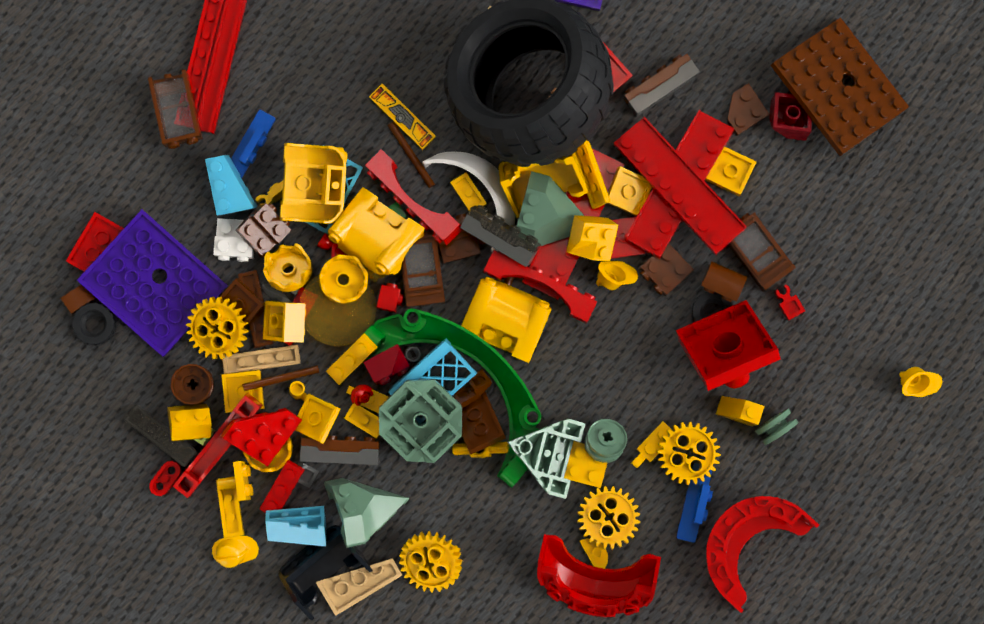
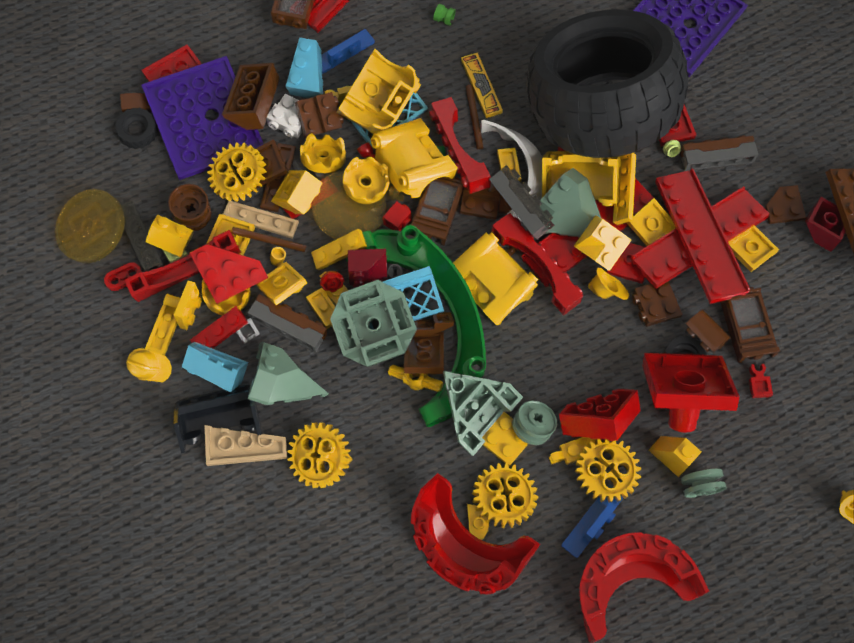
camera: 20 degrees right, 15 degrees down
(108, 446) = (90, 226): none -> clear yellow plate
(189, 241) = (251, 95): none -> reddish brown slope
(328, 56) = (444, 14): none -> bright green wheel
(616, 101) = (672, 148): none -> yellowish green plate
(662, 407) = (601, 416): none -> red brick

